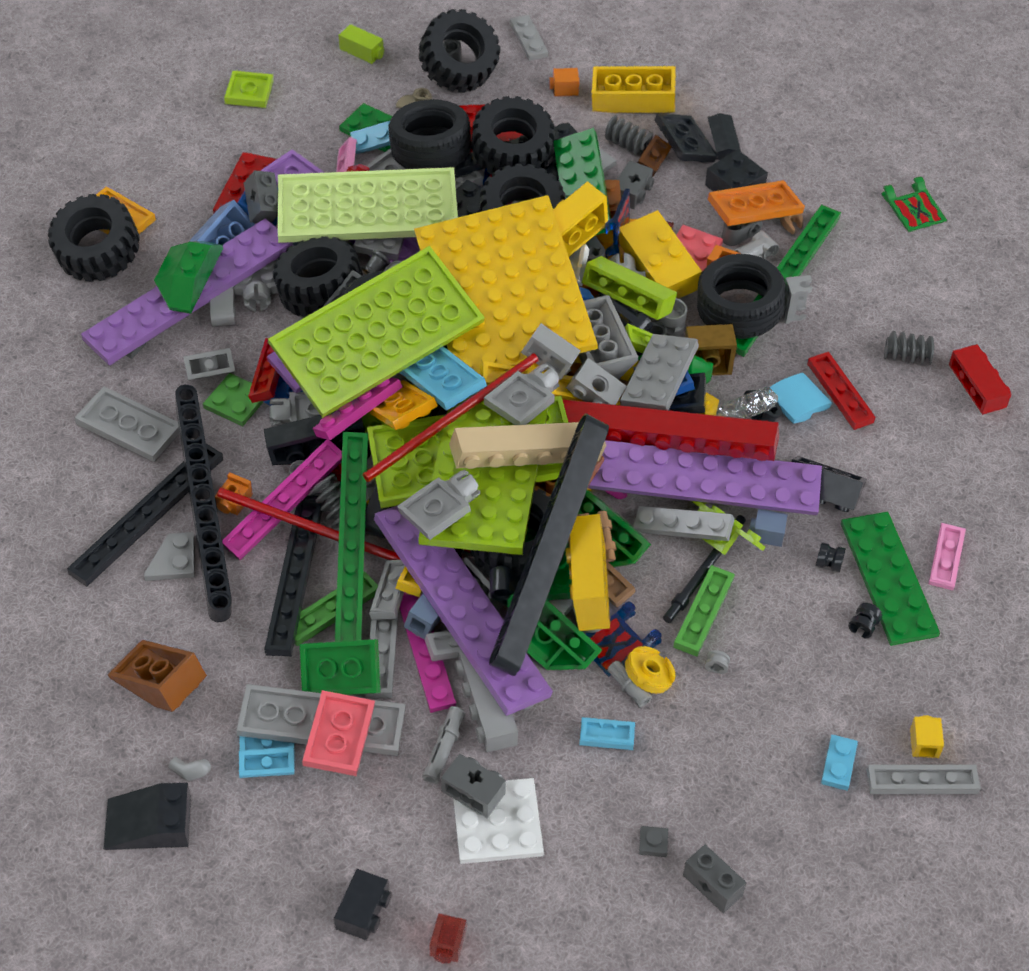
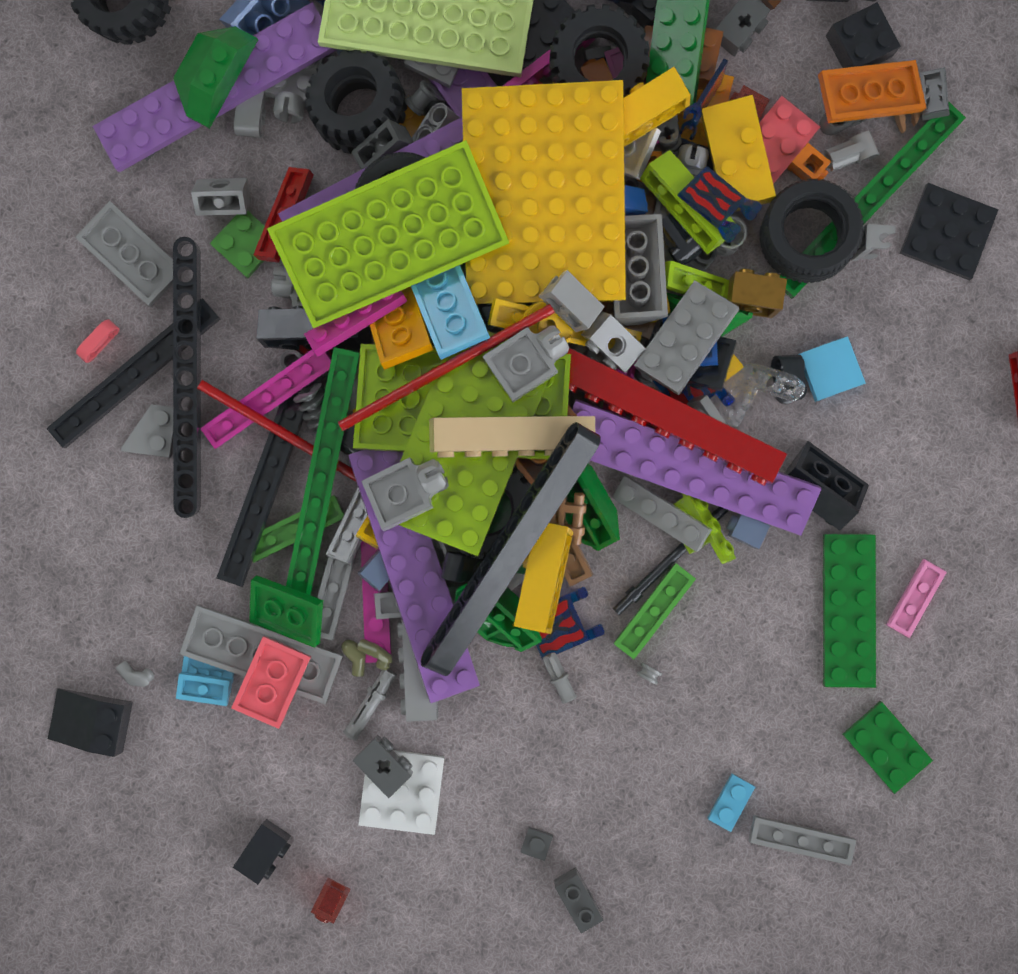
camera: 15 degrees right, 35 degrees up
(107, 492) = (97, 340): none -> coral beam
(159, 674) = (117, 569): dark orange slope -> none
(238, 485) = (229, 374): orange brick -> none
(420, 704) = (356, 657): none -> olive arm
(442, 688) = (377, 652): none -> olive arm
(607, 733) = (524, 726): medium azure plate -> none
(645, 679) = (569, 665): yellow tile -> none
(655, 278) = (717, 202): none -> flag
(811, 201) = (935, 93): none -> dark grey plate
(830, 557) = (798, 577): black wheel -> none
(841, 390) = (880, 368): red plate -> none
(859, 290) = (949, 231): none -> black plate
(866, 618) = (811, 654): black wheel -> none
(909, 347) = (974, 329): dark grey piece -> none
(926, 737) = (821, 799): yellow brick -> none
(973, 683) = (887, 747): none -> green plate

